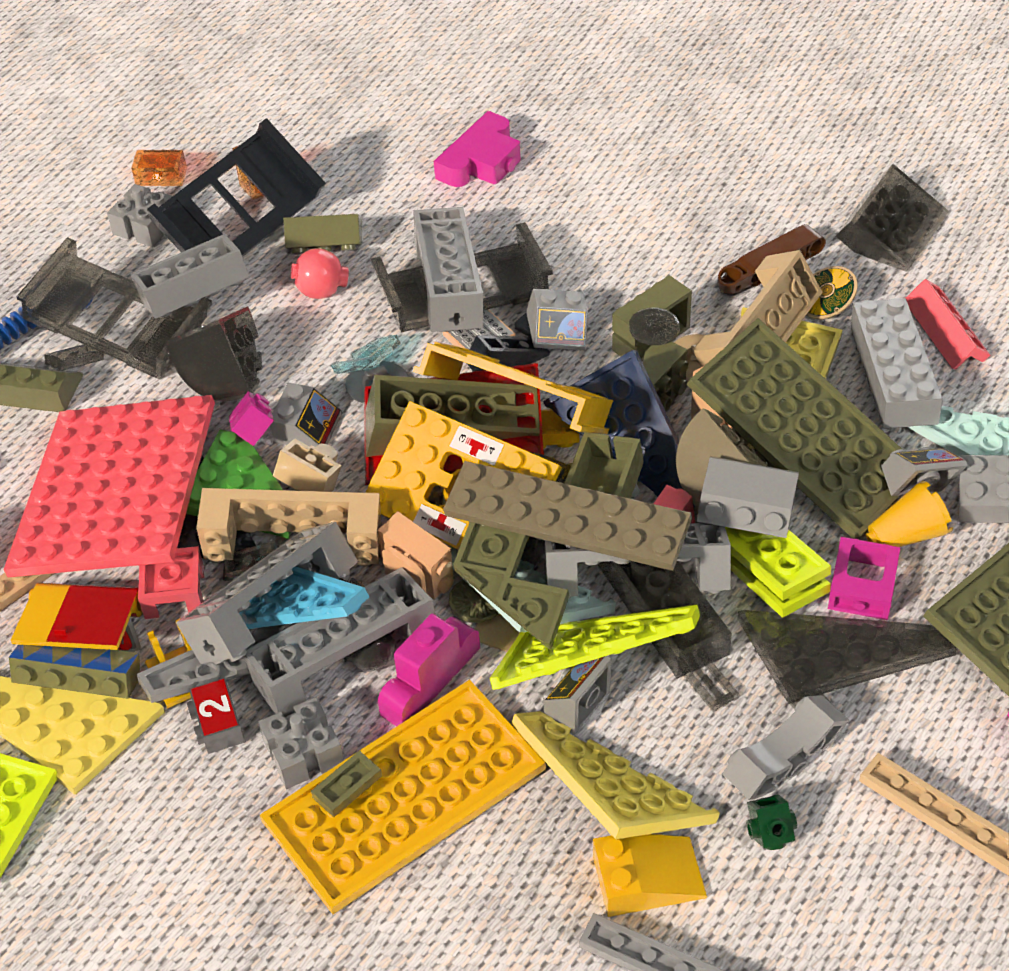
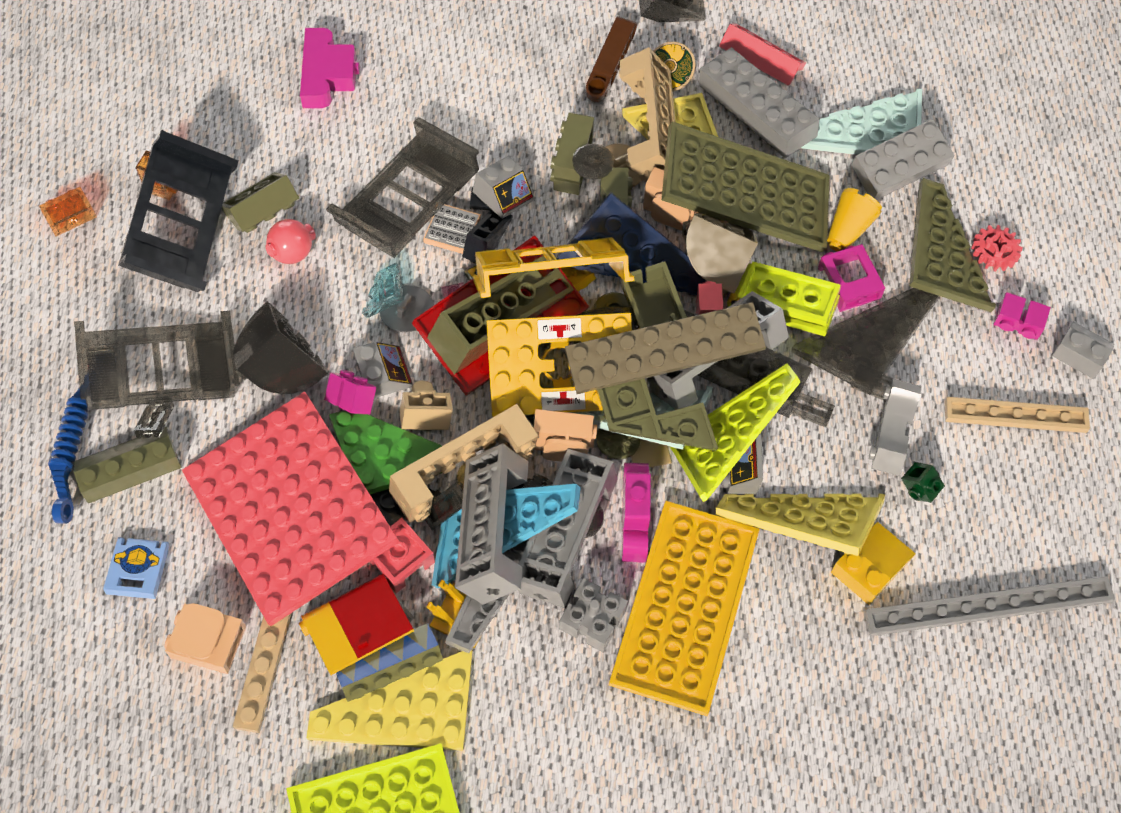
camera: 40 degrees left, 15 degrees up
(131, 217) = (95, 262): light grey brick -> none
(190, 276) = (202, 300): light grey brick -> none
(216, 716) = (517, 633): brick -> none
(346, 783) = (652, 625): olive plate -> none
(449, 269) = (398, 183): light grey plate -> none
(748, 497) = (762, 265): light grey slope -> none
(909, 468) = (836, 177): light grey slope -> none

